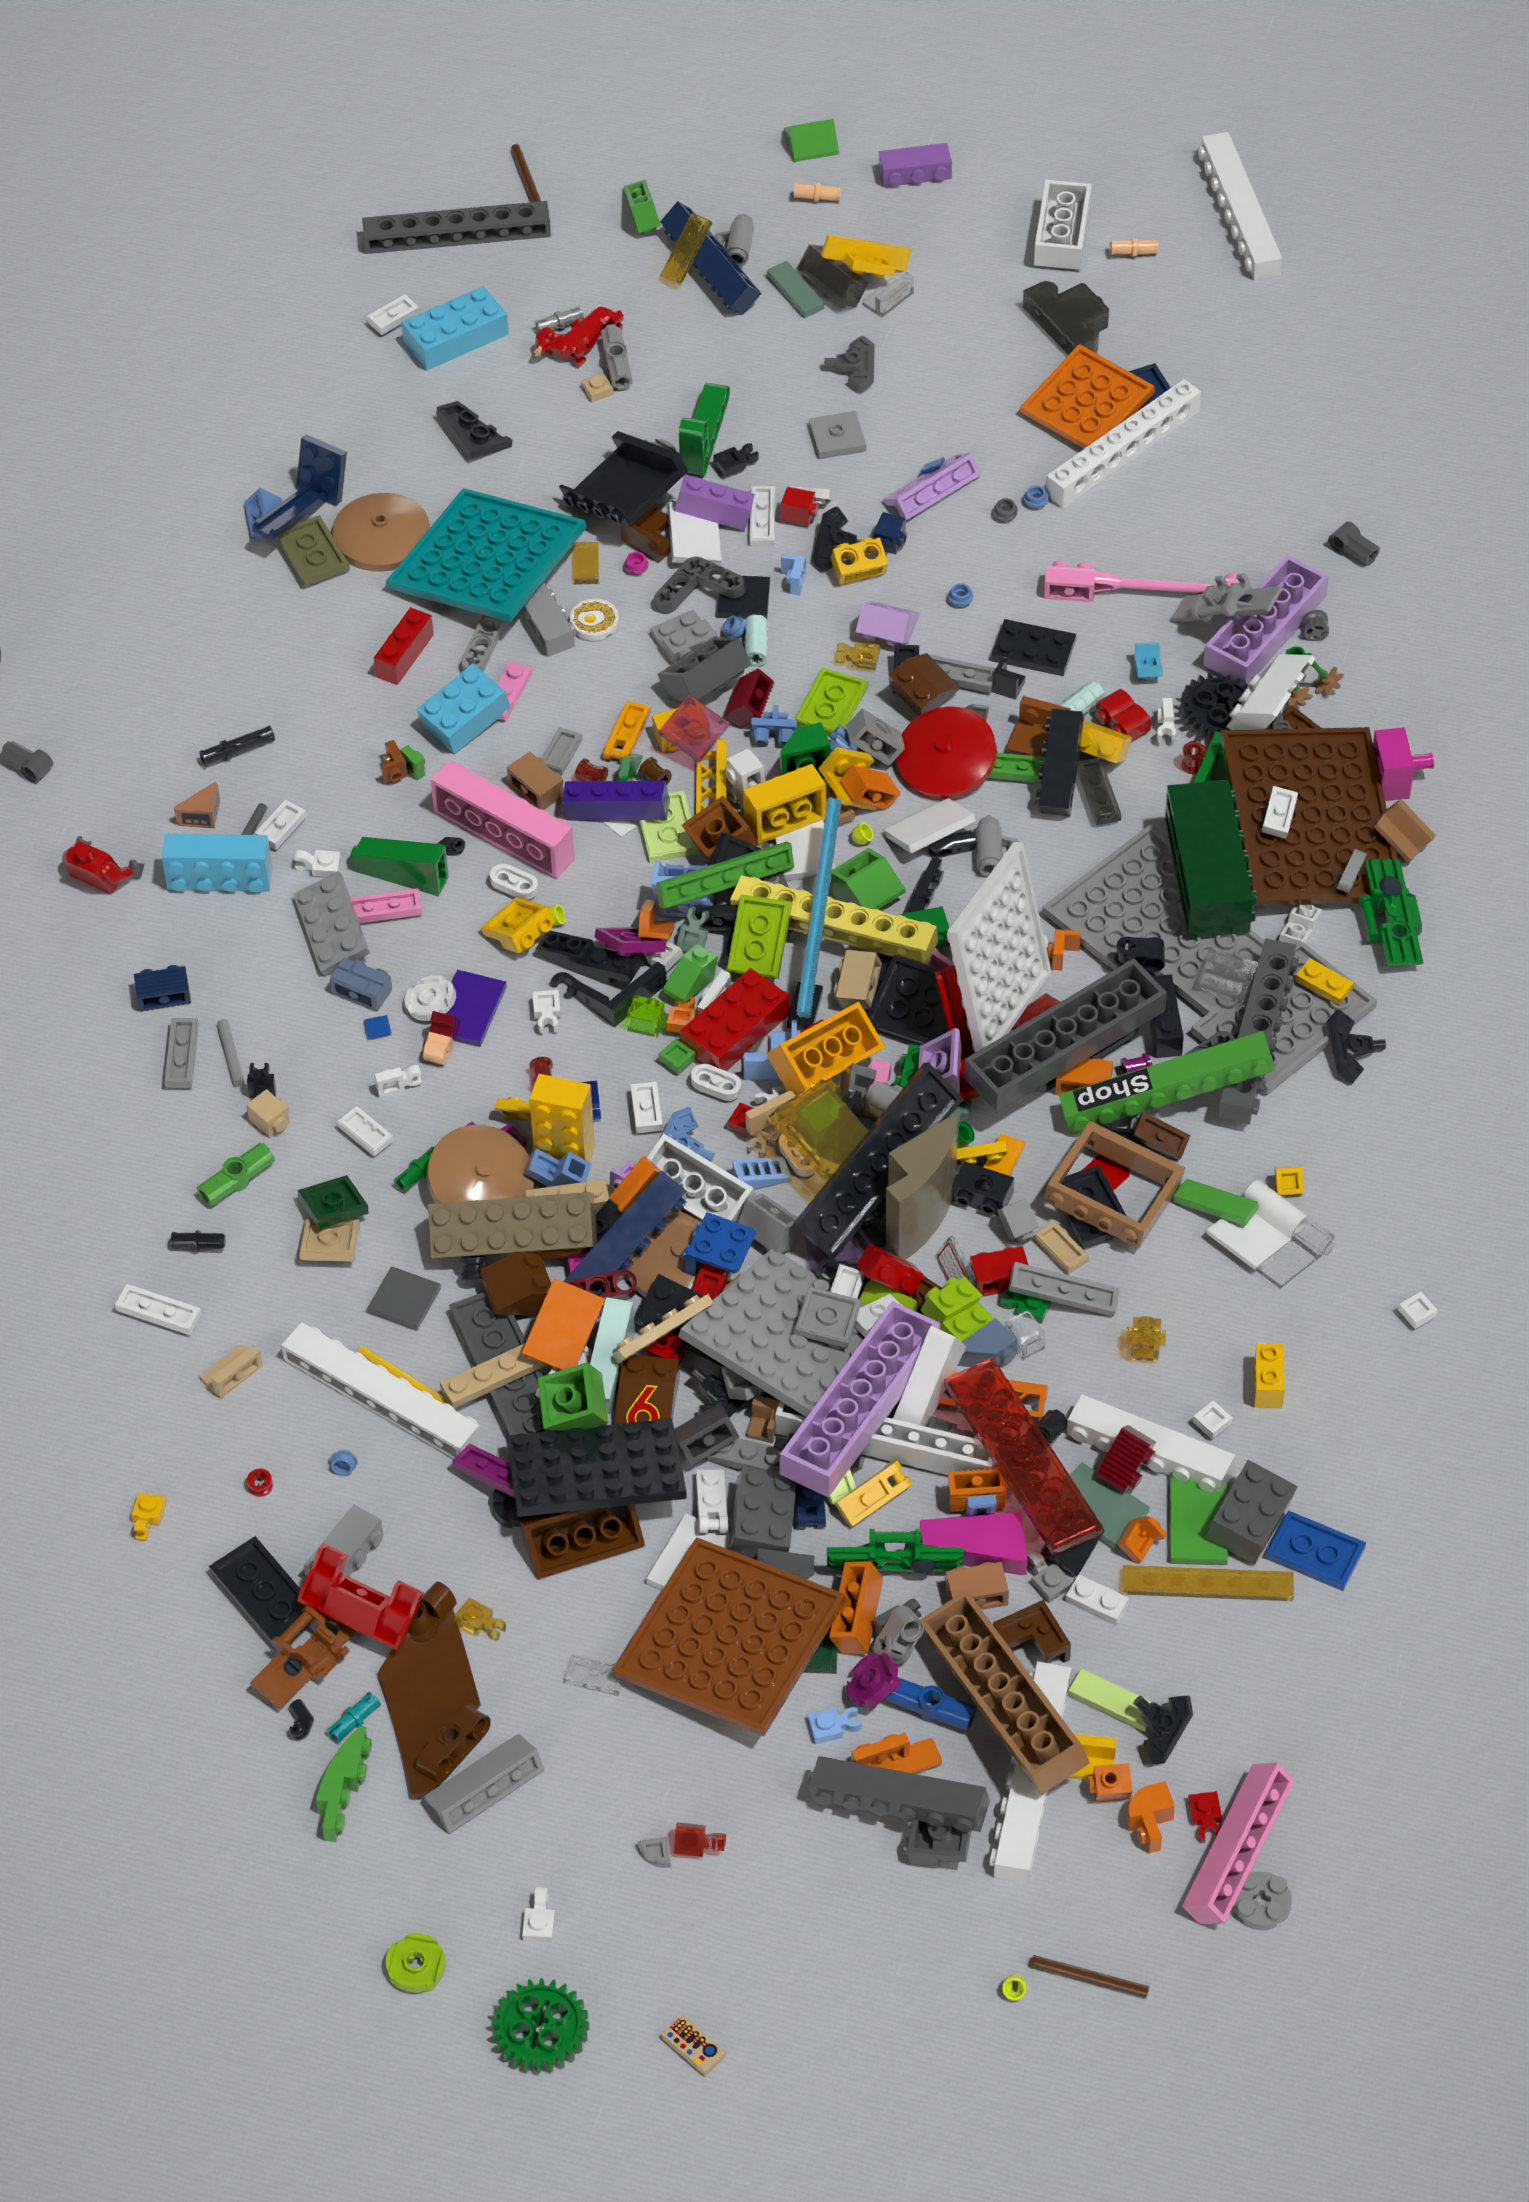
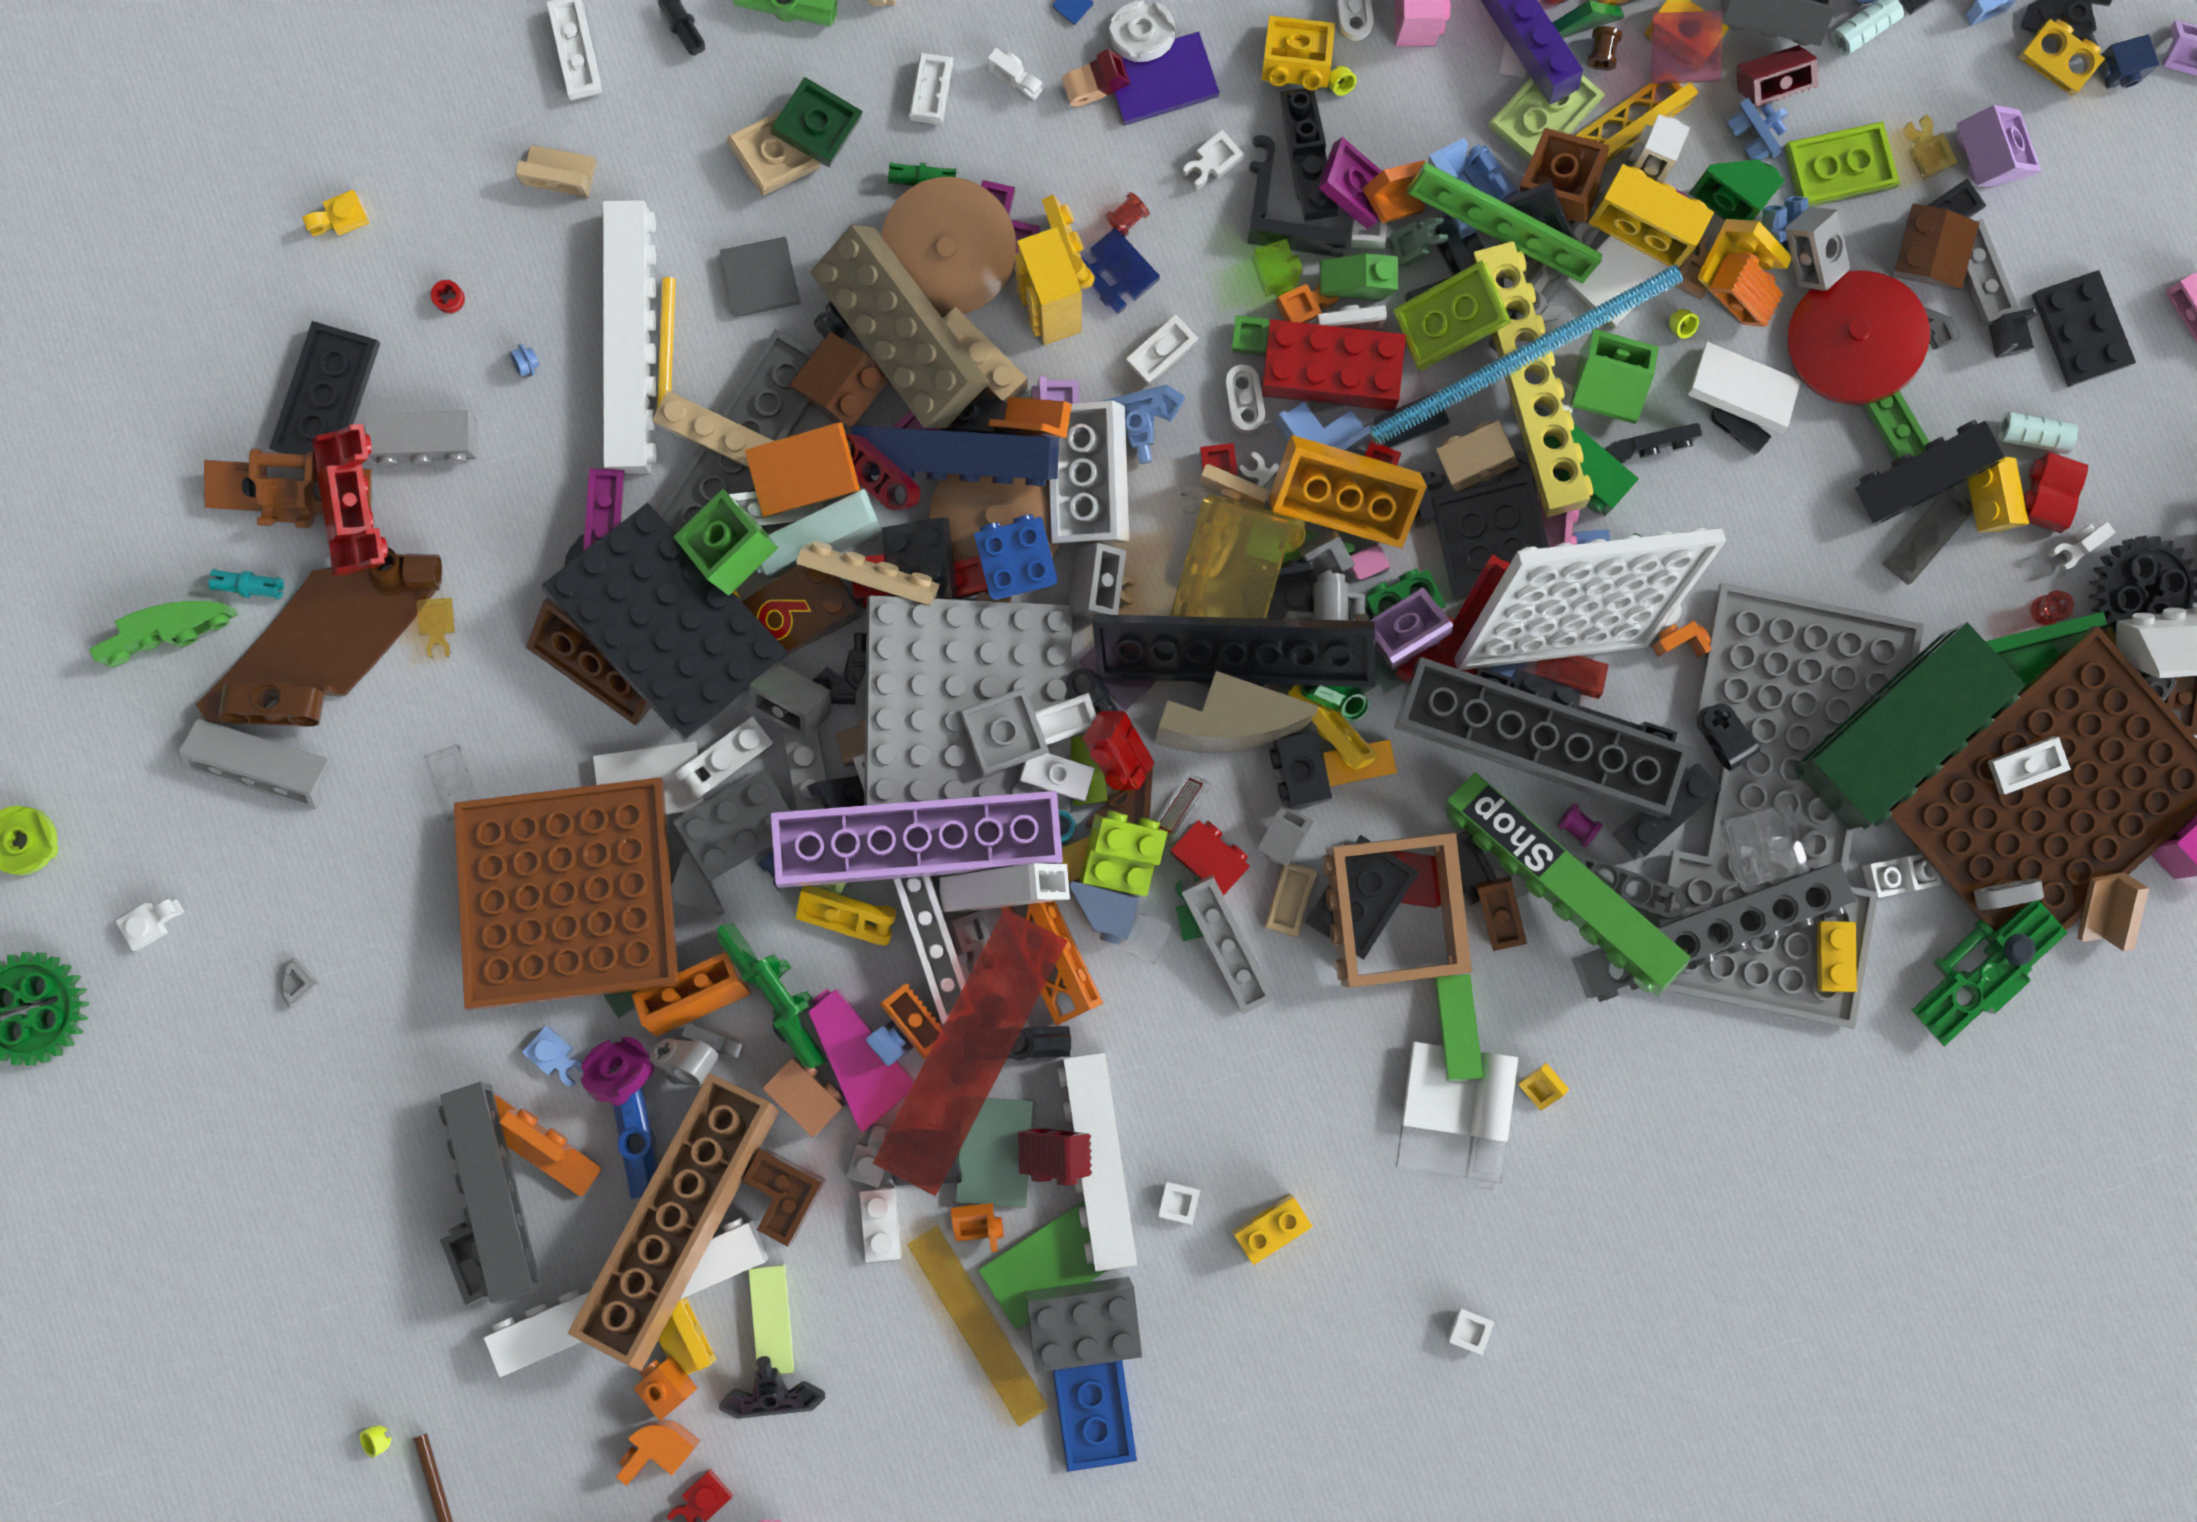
camera: 50 degrees right, 30 degrees up
(303, 1722) = (211, 539): black arm -> none
(556, 1172) = (1009, 319): medium blue brick -> none
(692, 1840) = (326, 1014): clear red plate -> none
(693, 2045) = (110, 1167): tan tile -> none
(751, 1166) = (1162, 506): light blue slope -> none
(872, 1232) = (1159, 692): black plate -> none
(960, 595) = (2106, 196): medium blue plate -> none
(990, 843) = (1763, 471): light grey piece -> none
(1030, 728) = (1953, 406): dark orange bracket -> none
(1084, 1074) = (1525, 790): orange slope -> none
(1145, 1338) = (1215, 1069): clear yellow brick -> none
(1147, 660) = (2154, 467): medium azure bracket -> none
(1348, 1046) = (1770, 1037): black piece -> none

